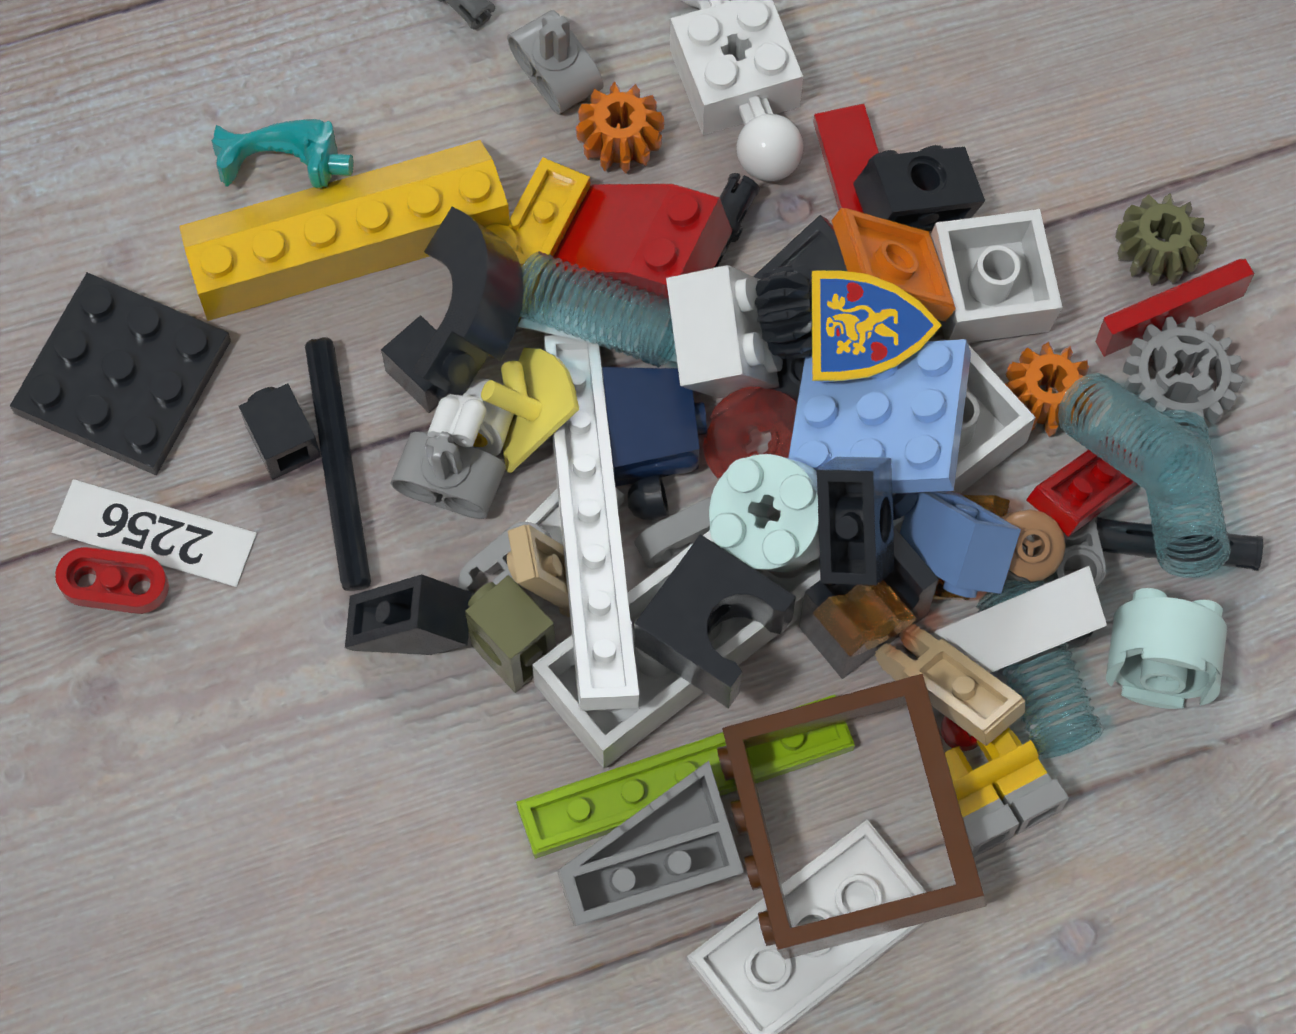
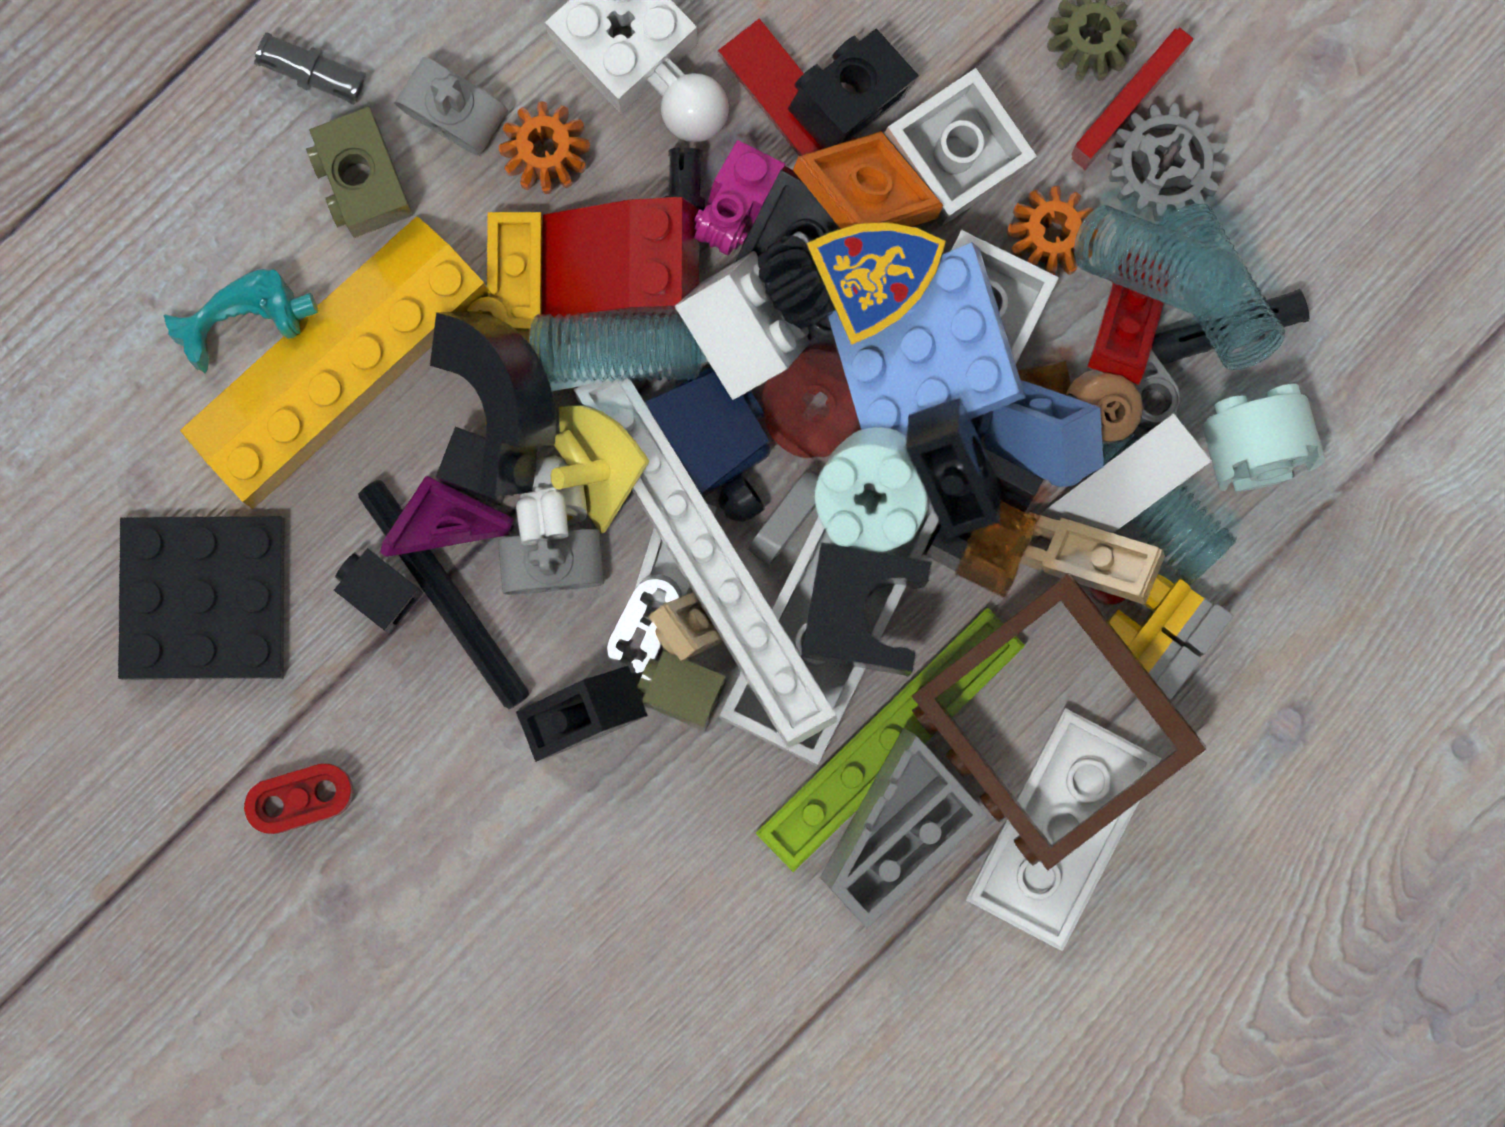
camera: 25 degrees left, 15 degrees up
(154, 530) = (309, 733): white sticker -> none
(366, 392) = (443, 518): none -> magenta tile
(449, 108) = (358, 141): none -> olive brick
(766, 229) = (736, 197): none -> dark pink brick

